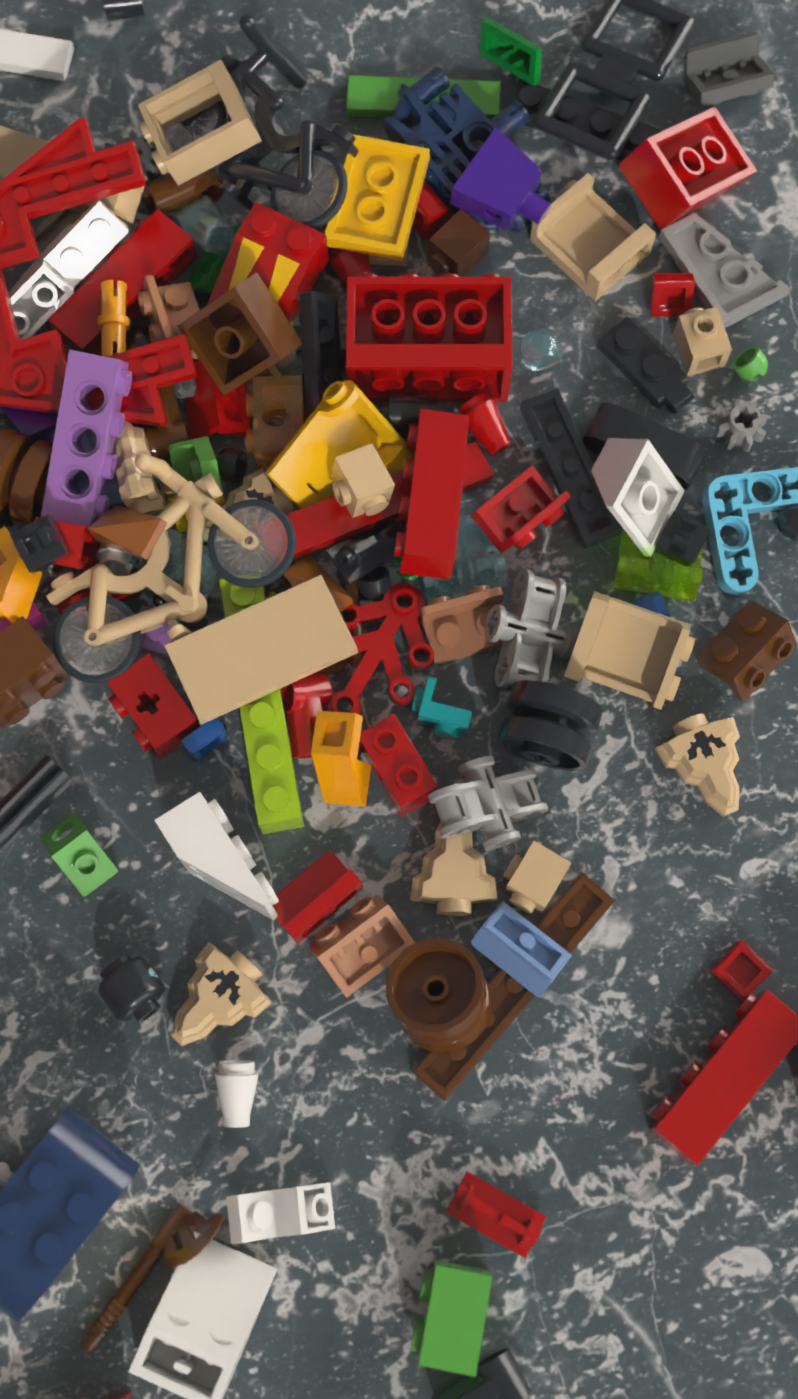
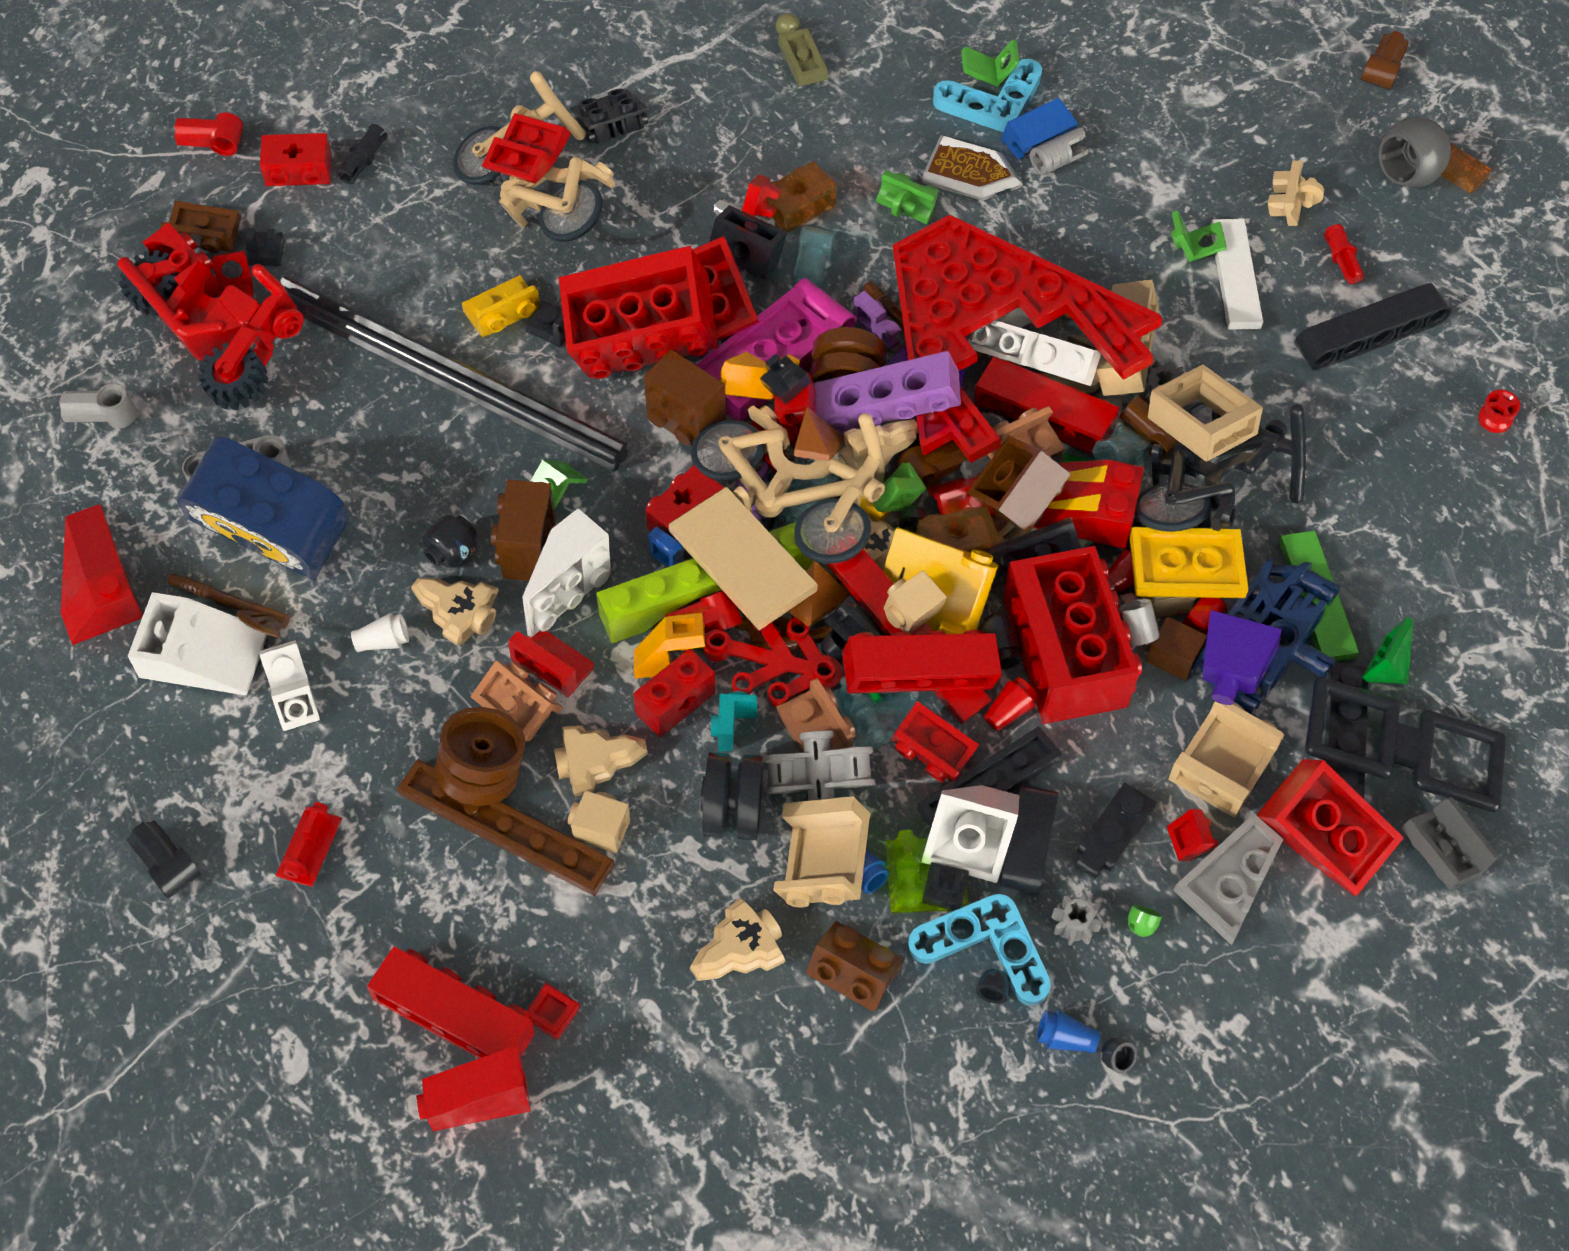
camera: 75 degrees right, 15 degrees down
(113, 320) = (1005, 396): light orange pin -> none
(147, 892) = (523, 527): none -> reddish brown brick
(428, 261) = (1140, 619): none -> light grey piece
(453, 1318) = (218, 816): bright green brick -> none
(488, 803) = (661, 776): light grey axle -> none
(520, 949) = (535, 819): medium blue slope -> none
(542, 352) = (1094, 737): clear light blue tile -> none
(702, 340) = (1152, 869): tan brick -> none

